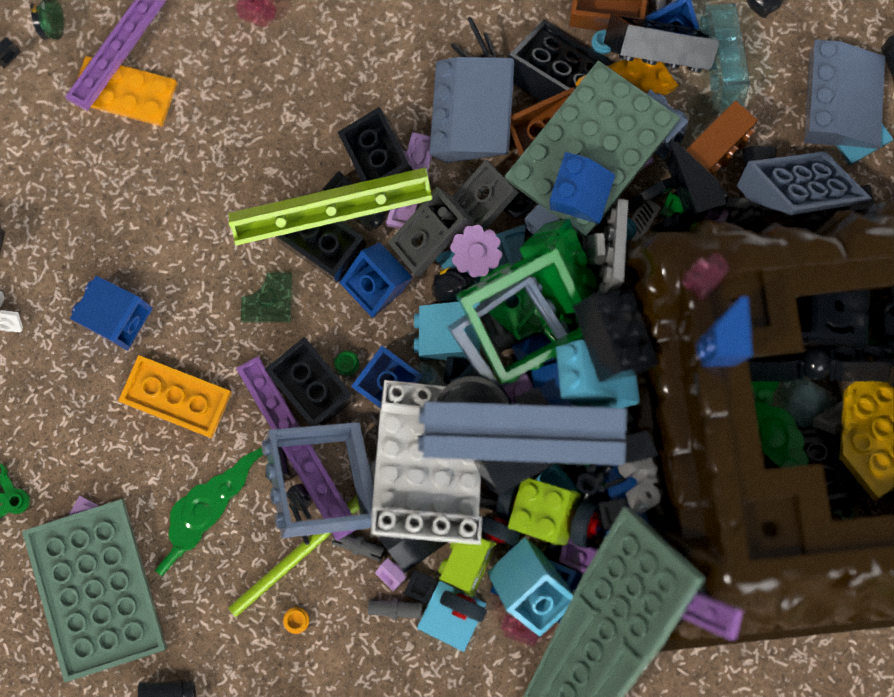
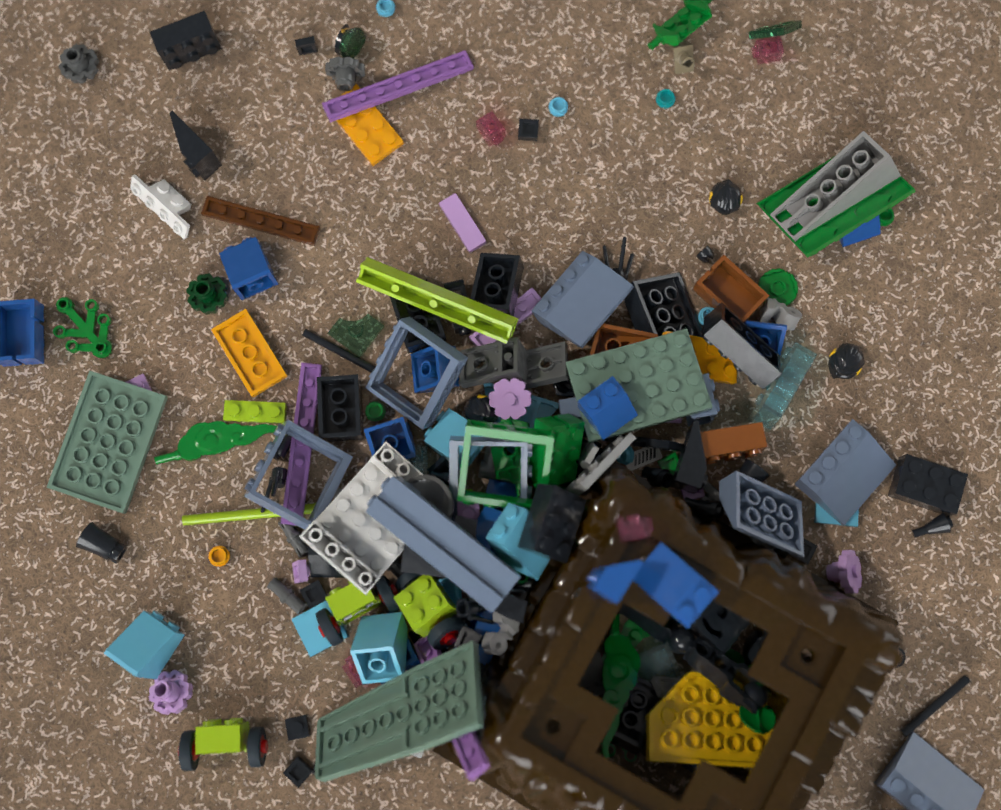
camera: 30 degrees right, 0 degrees up
(65, 50) = (345, 72): none -> dark grey plant
(87, 258) = (260, 220): none -> reddish brown tile
(87, 368) = (207, 293): none -> dark green plant
(224, 451) = (254, 411): none -> lime plate
(265, 330) = (338, 350): none -> black bar
(295, 118) = (462, 223): none -> lavender tile
(321, 303) = (384, 362): none -> sand blue window
(789, 300) = (675, 585): none -> blue slope

